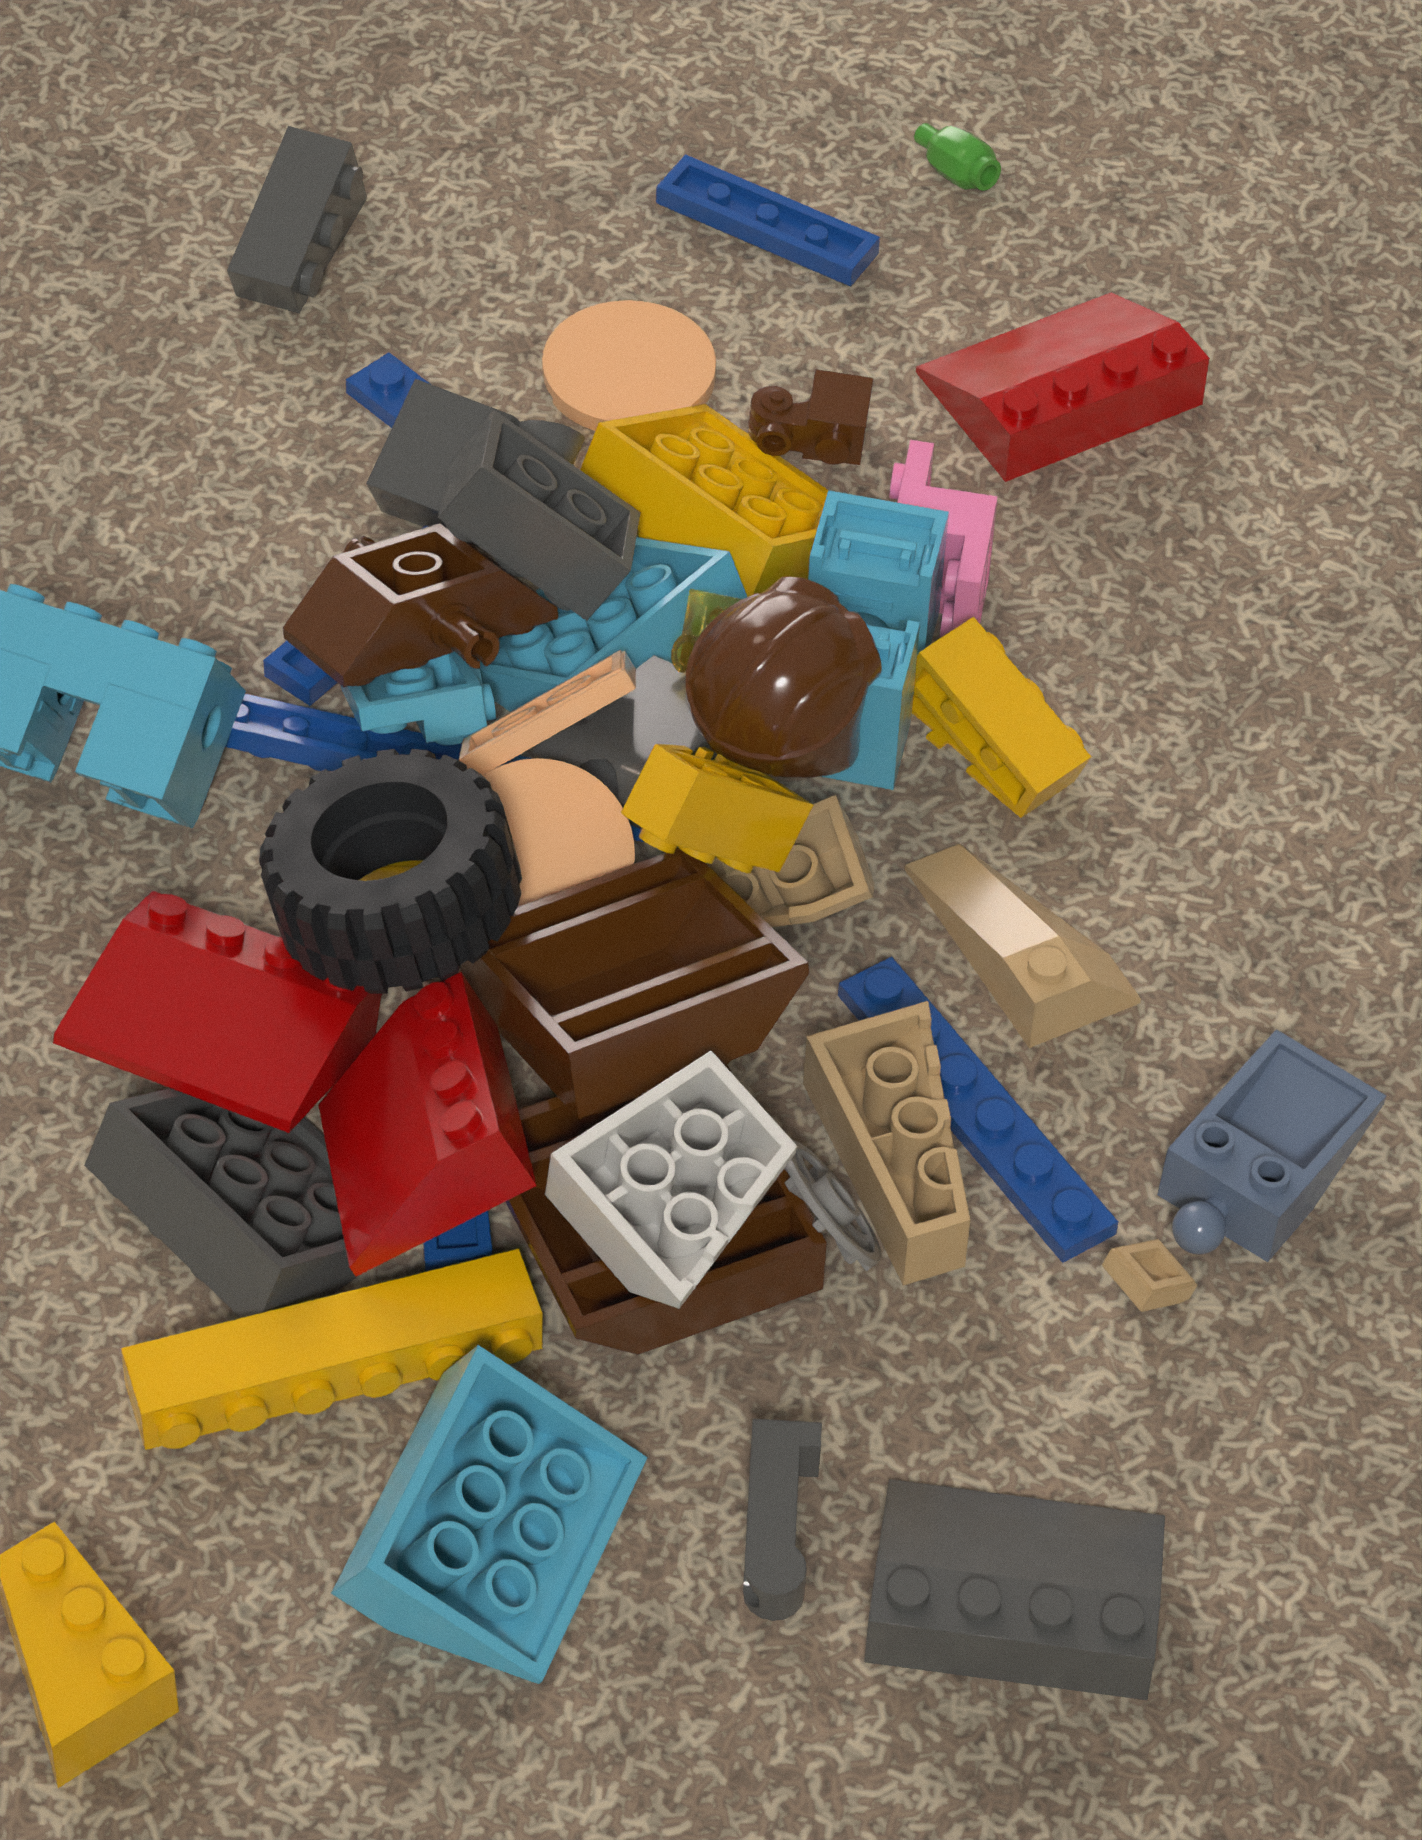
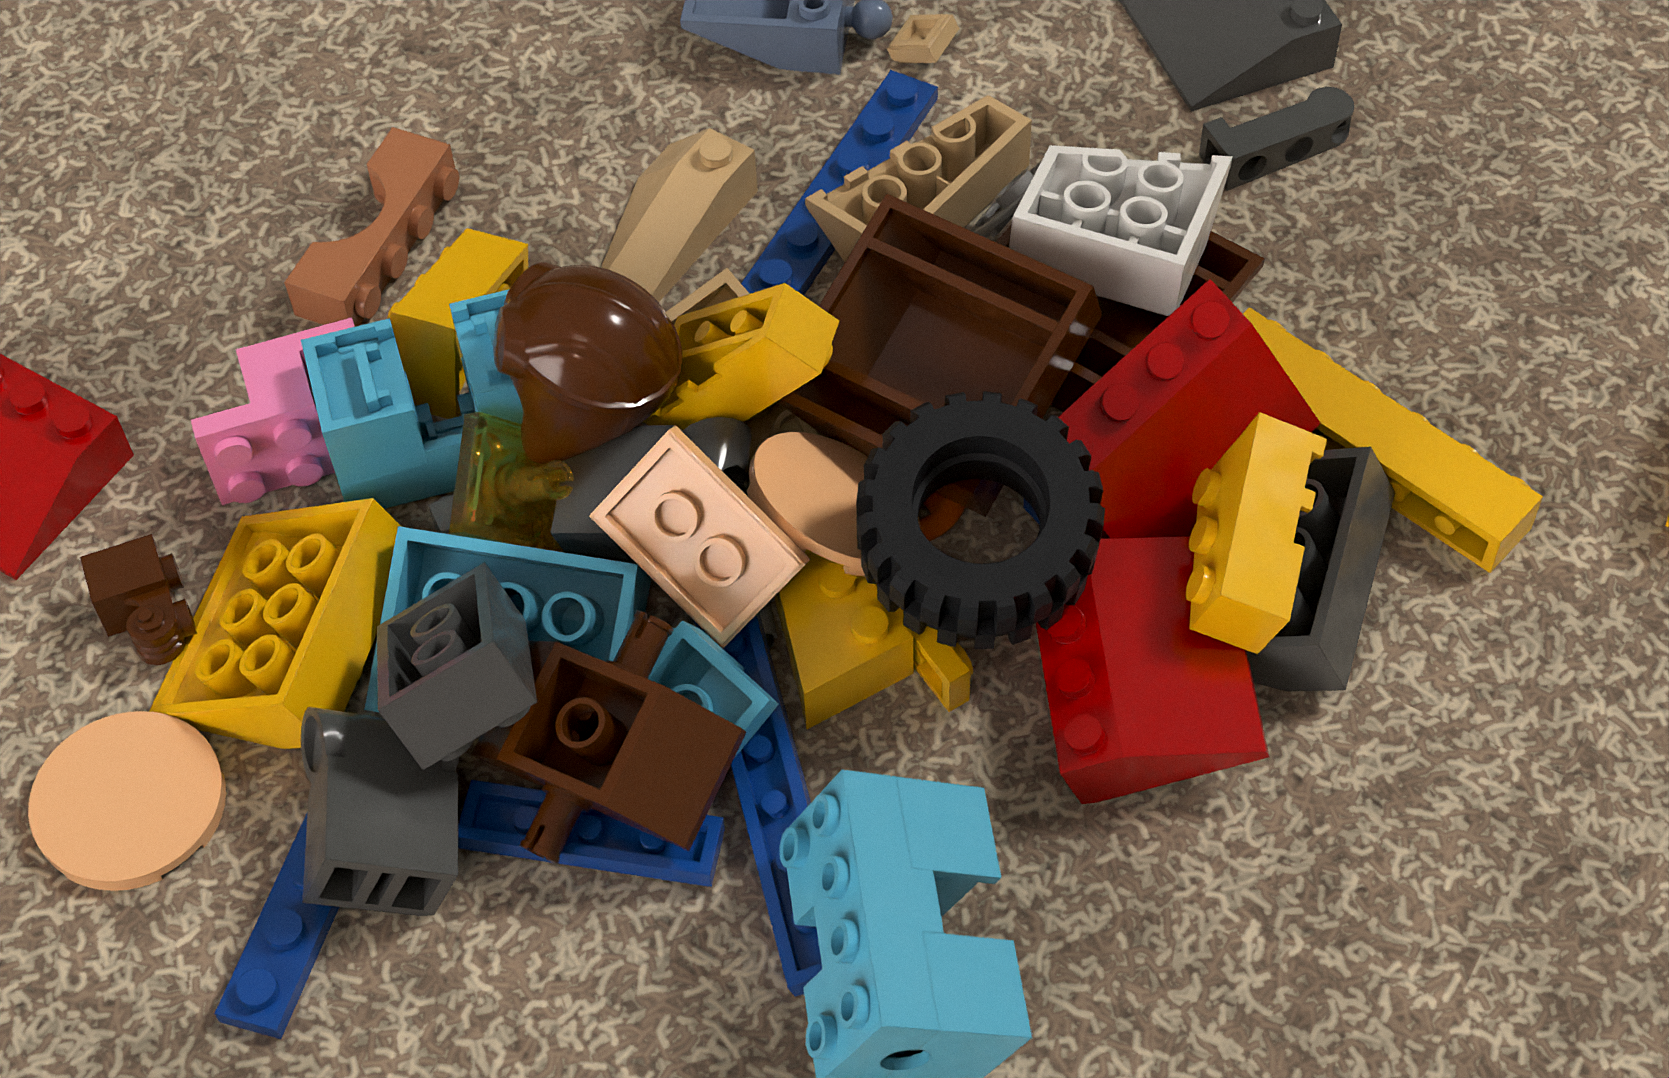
camera: 115 degrees left, 5 degrees up
(248, 1096) = (1246, 533): none -> yellow wedge
(491, 1520) = (1424, 285): medium azure slope -> none
(1205, 758) = (349, 274): none -> nougat arch

